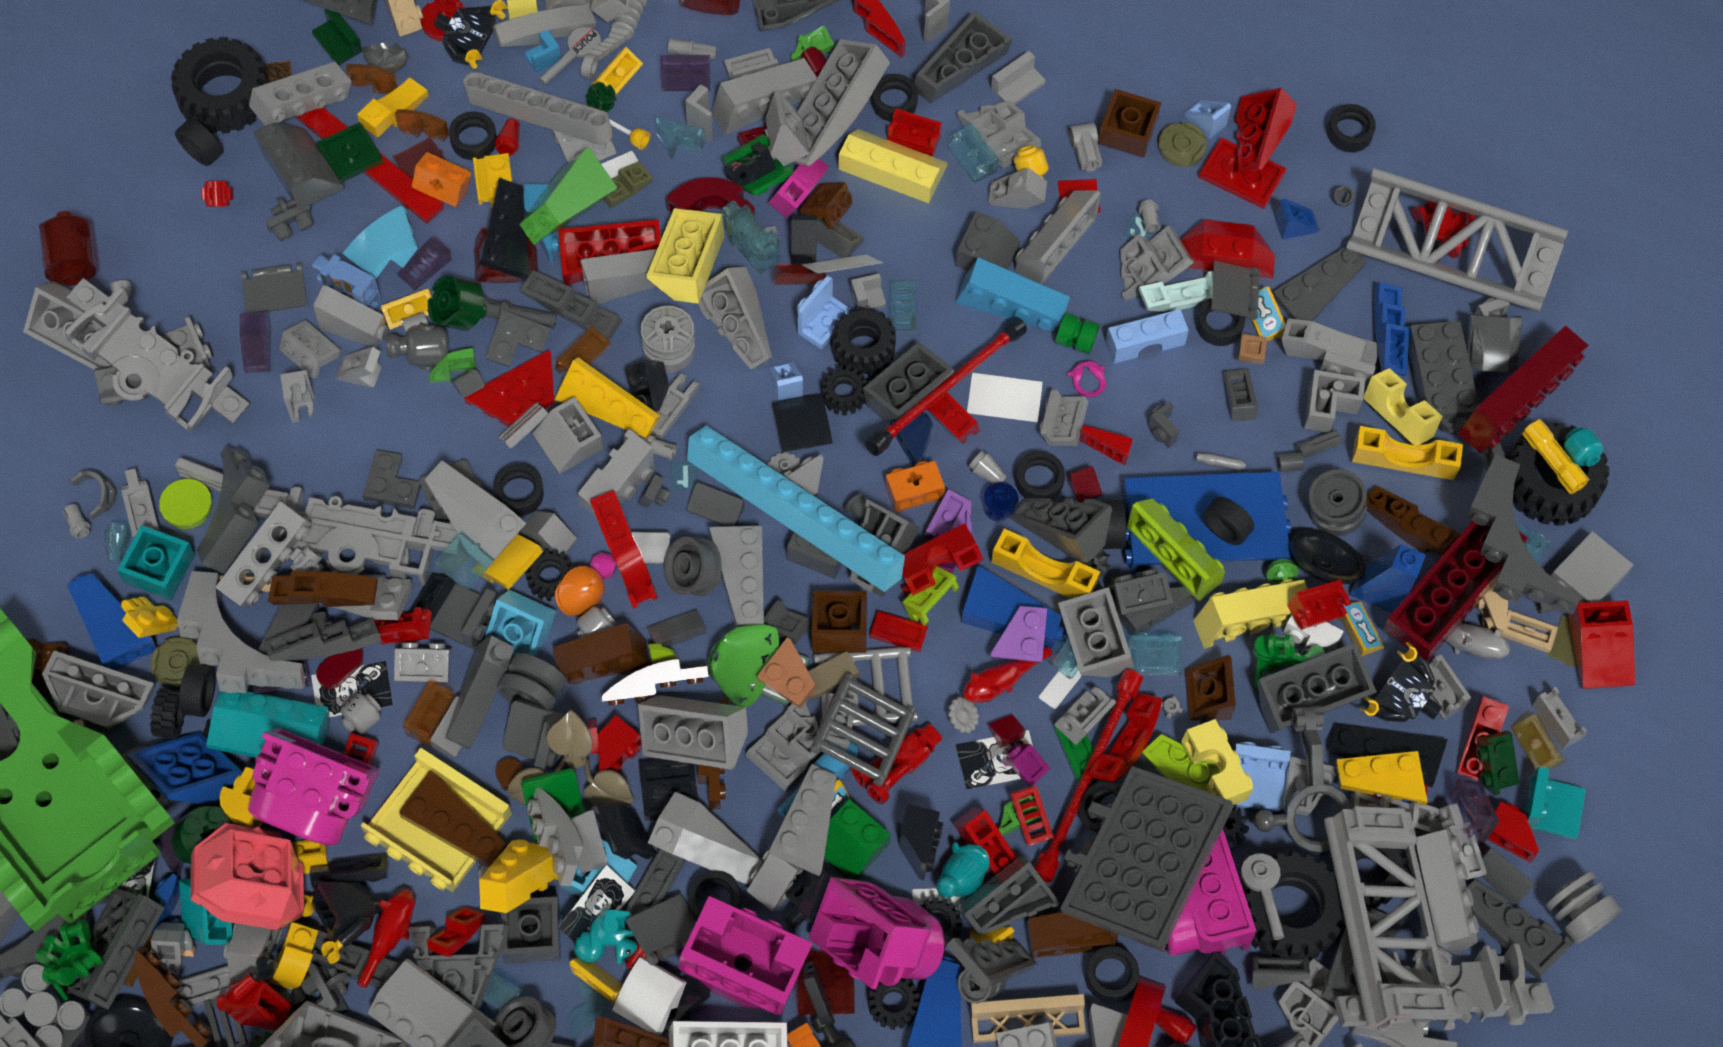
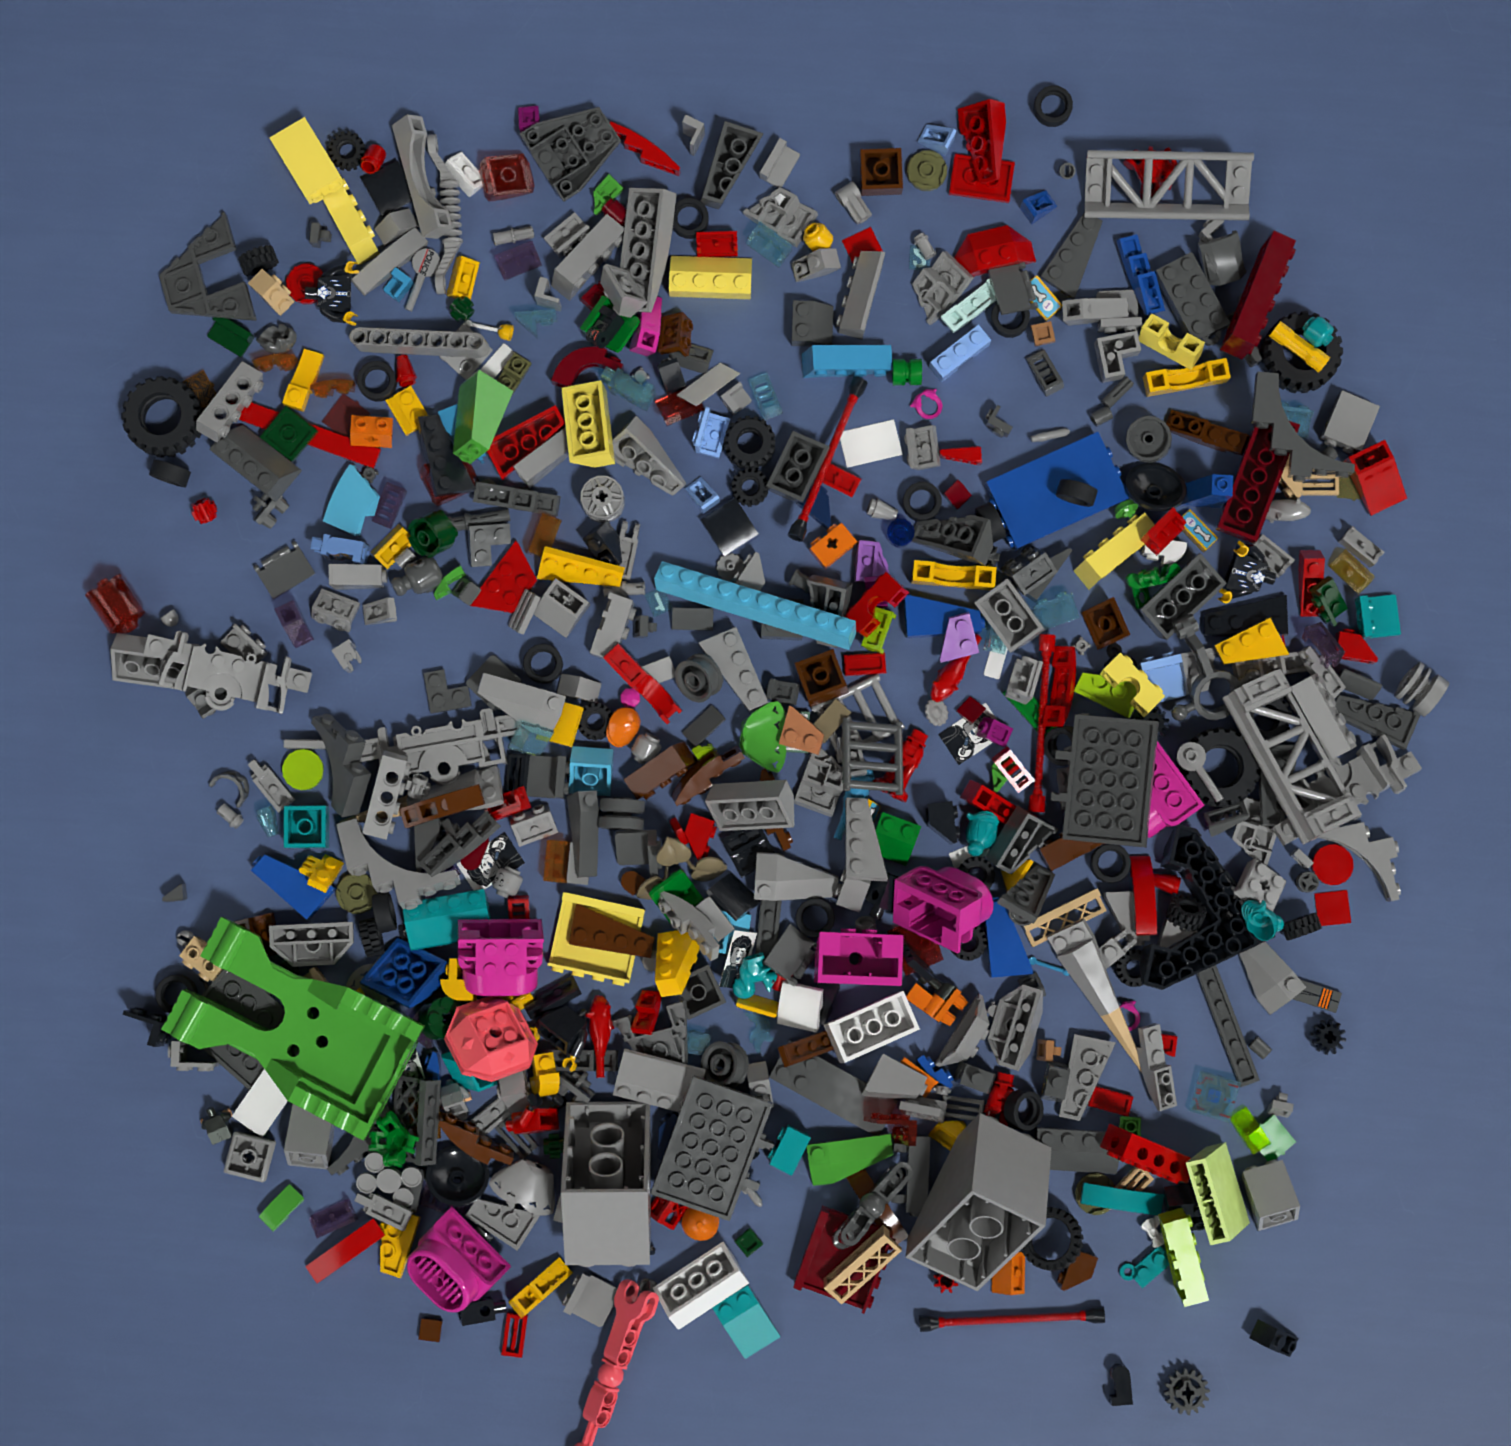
camera: 20 degrees left, 20 degrees up
(419, 226) = (369, 474): none -> dark grey piece
(1175, 548) = (1046, 528): lime slope -> none

